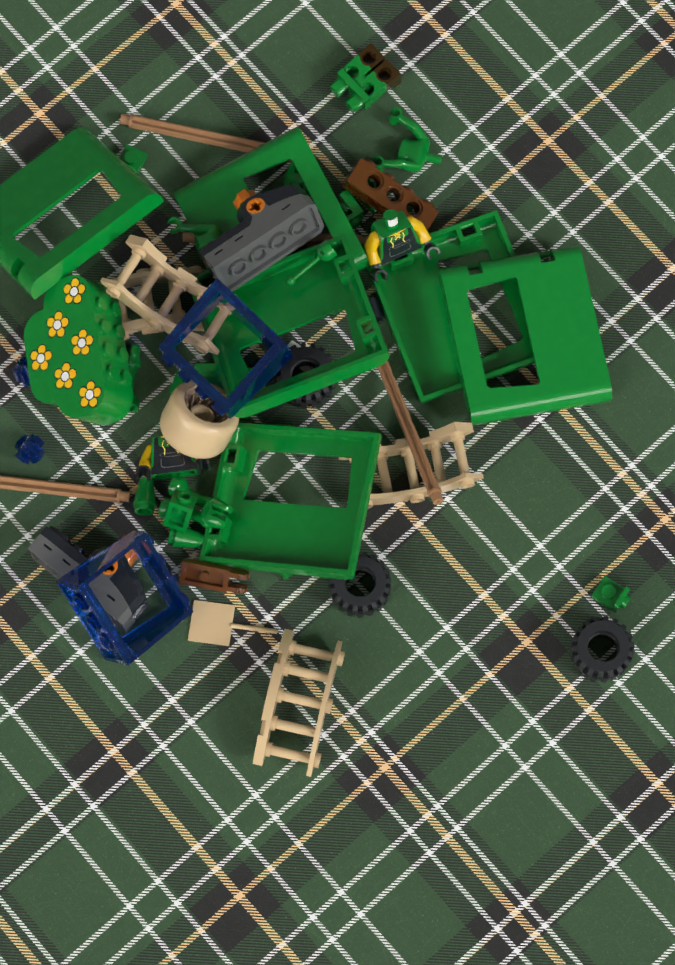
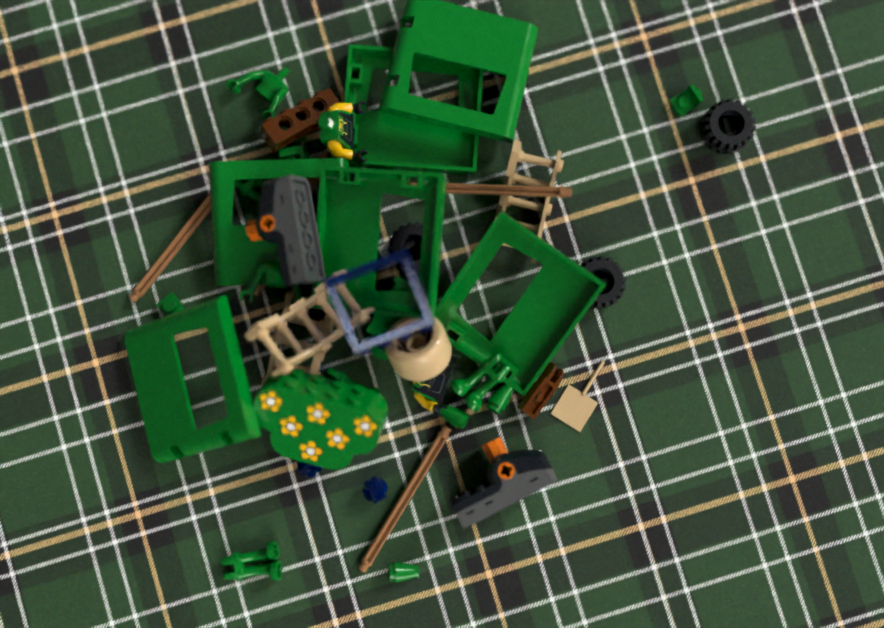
camera: 65 degrees left, 10 degrees up
(95, 619) = (567, 467): clear blue windscreen -> none
(180, 511) = (482, 394): green bracket -> none
(277, 694) = (662, 384): tan fence -> none
(324, 253) = (330, 187): green hinge -> none
(365, 79) = (192, 102): green hips -> none

